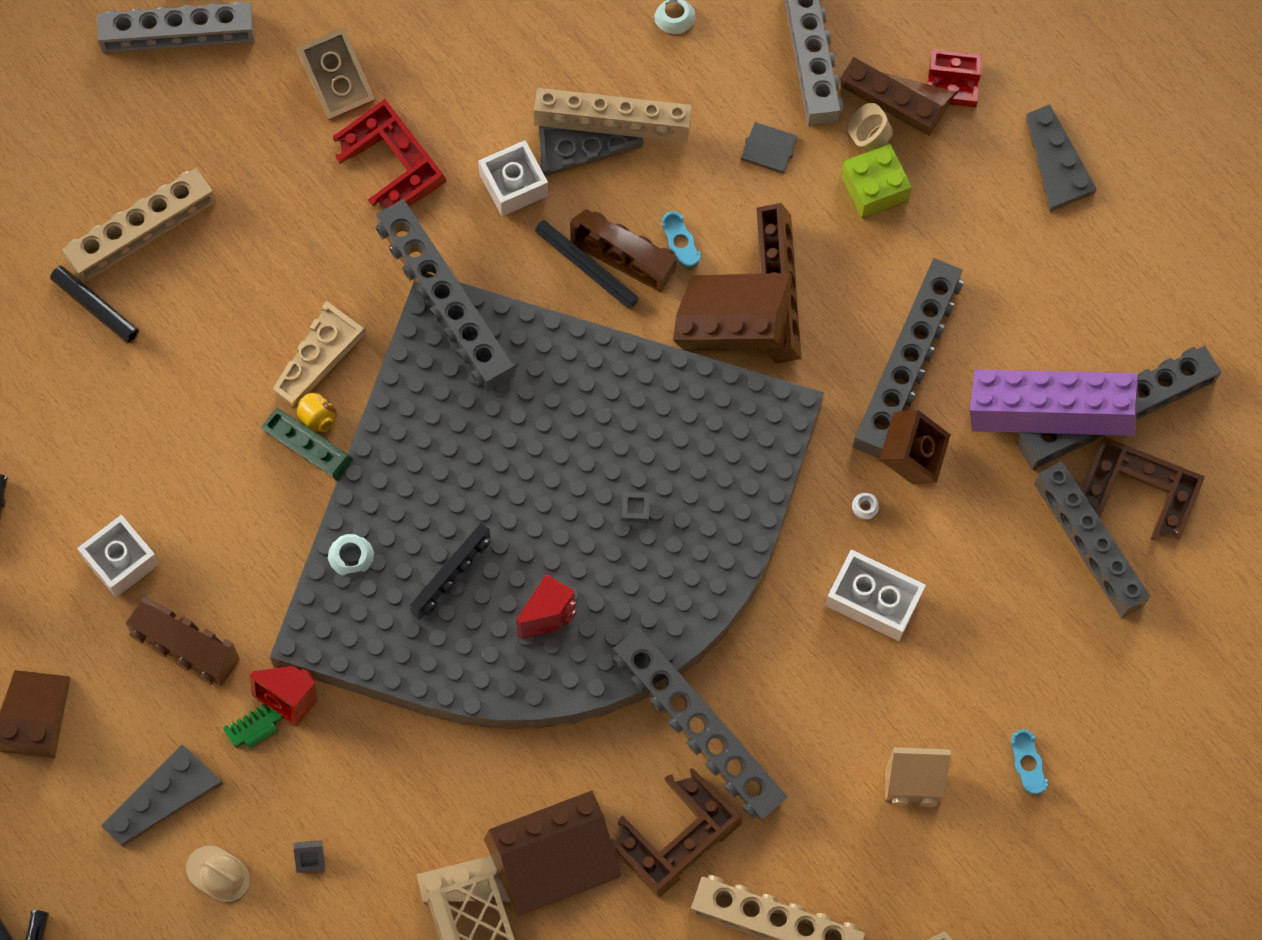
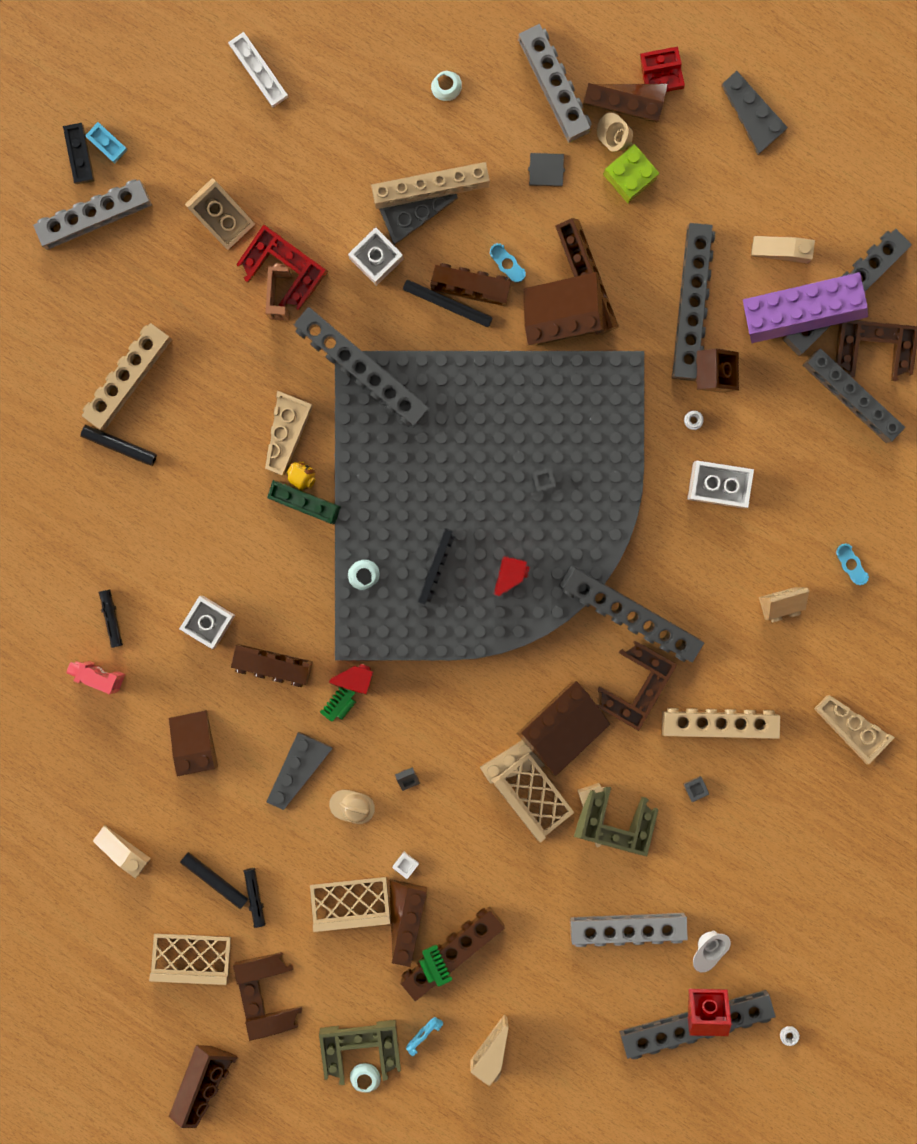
camera: 15 degrees left, 20 degrees up
(361, 201) = (272, 311): none -> nougat panel
(1050, 329) = (783, 248): none -> tan slope

